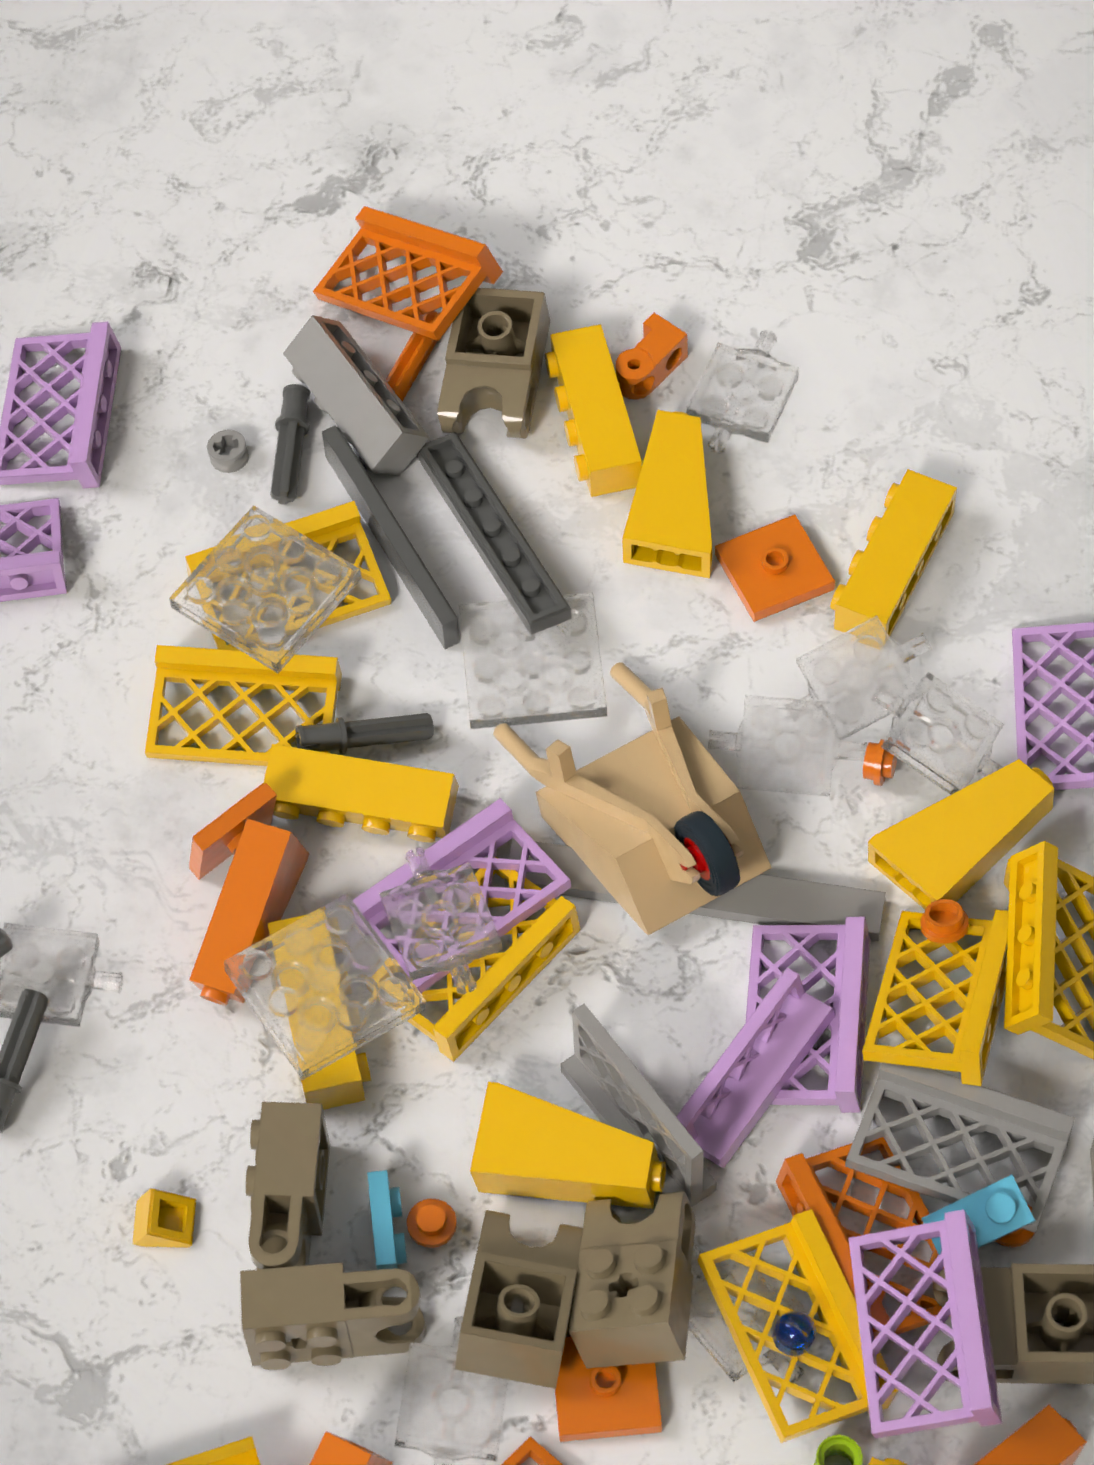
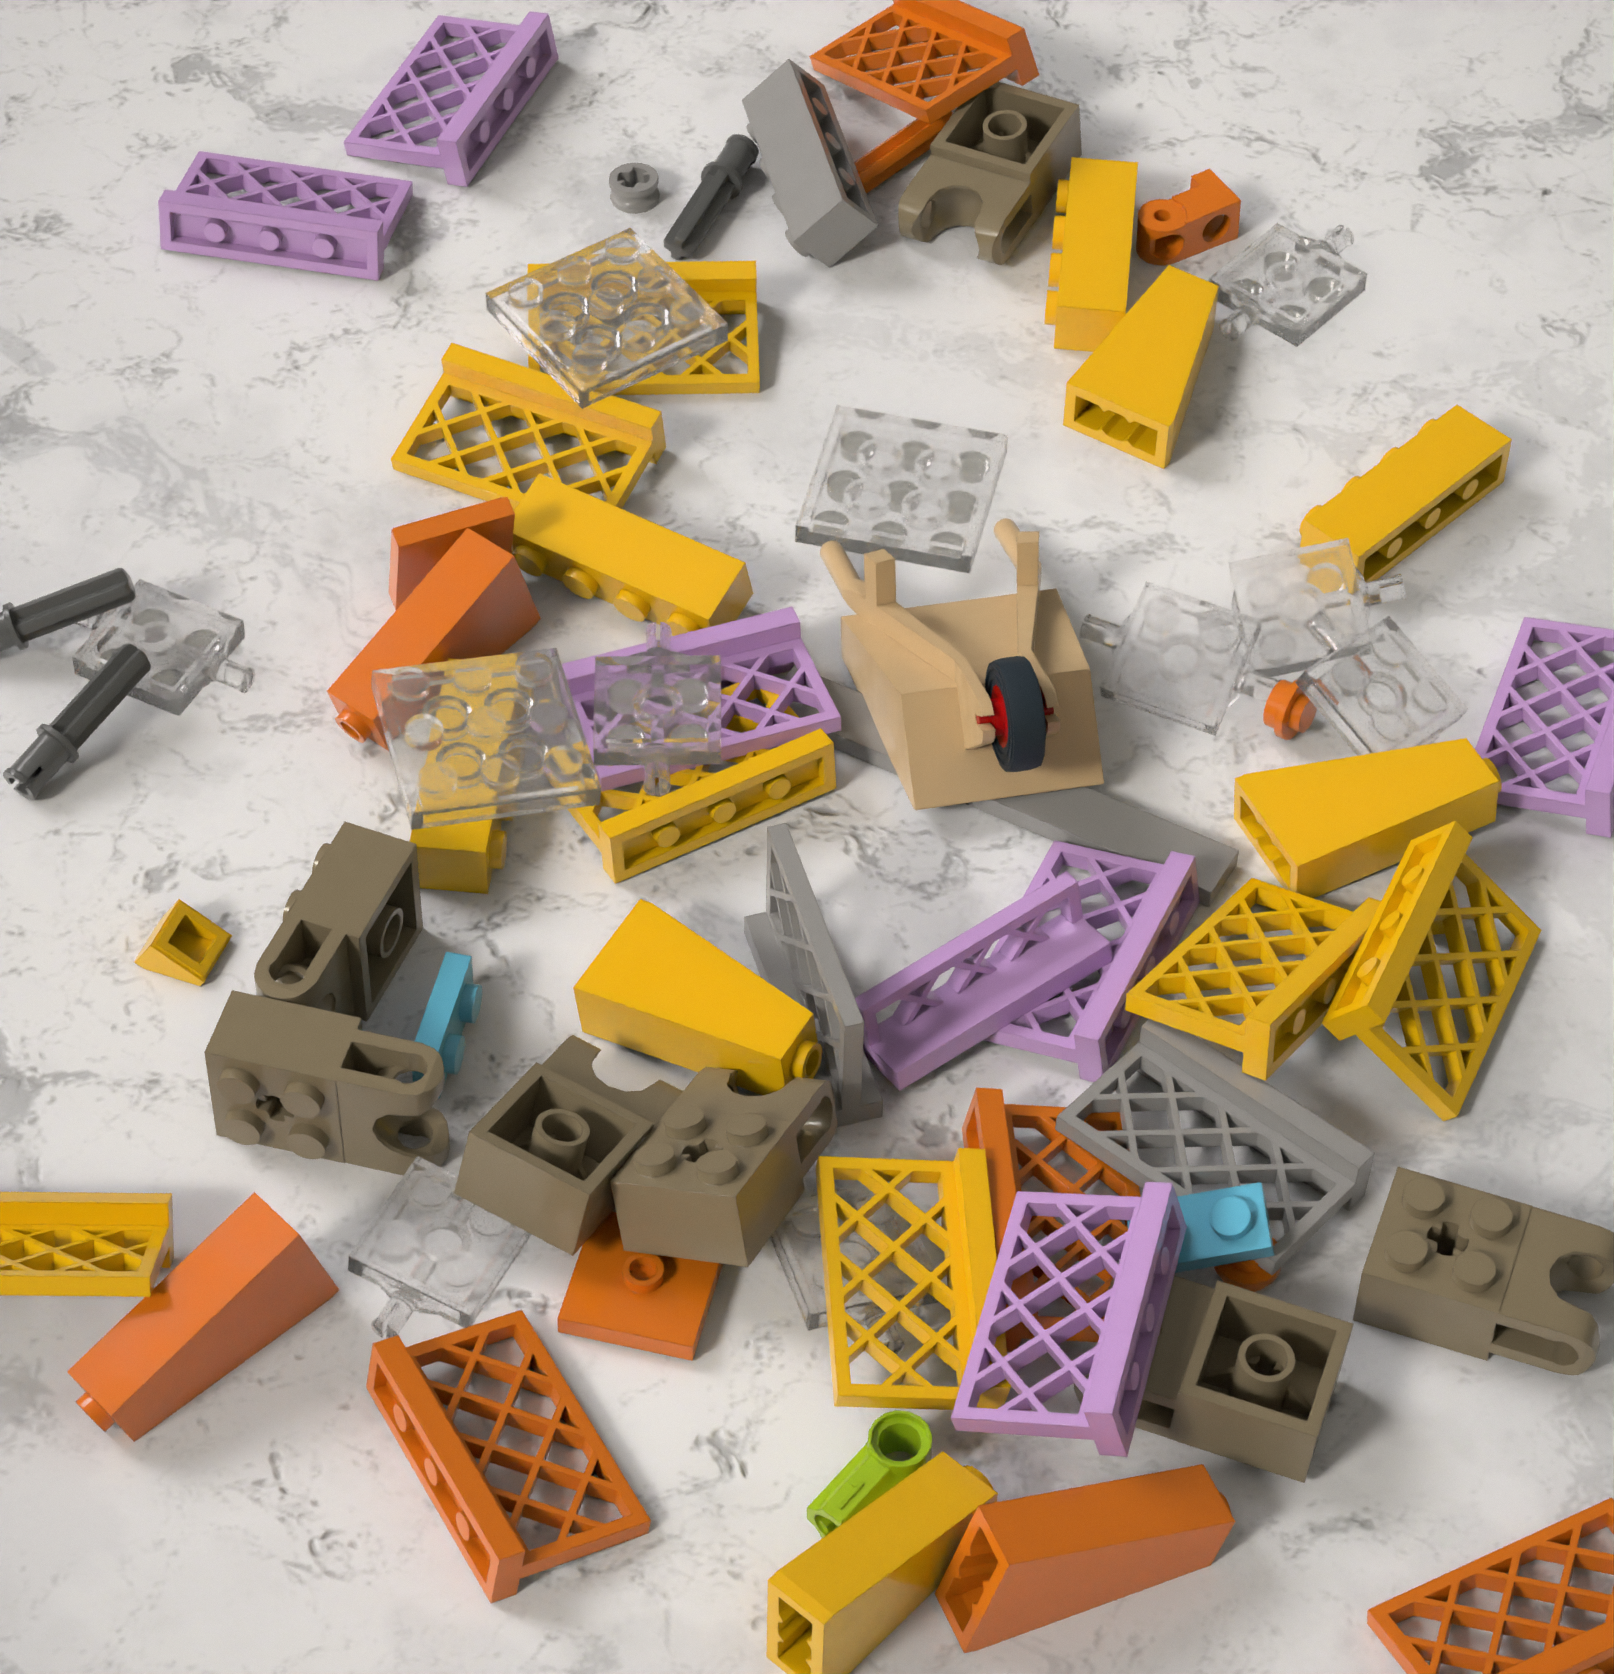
camera: 15 degrees right, 10 degrees down
(364, 732) = (668, 505): dark grey axle -> none
(391, 537) = (787, 319): dark grey tile -> none
(431, 1223) = (505, 1043): orange plate -> none
(494, 534) = (913, 346): dark grey tile -> none
(774, 568) = (1248, 475): orange plate -> none
(791, 1339) = (893, 1283): clear blue hinge -> none
(944, 921) = (1296, 893): orange plate -> none

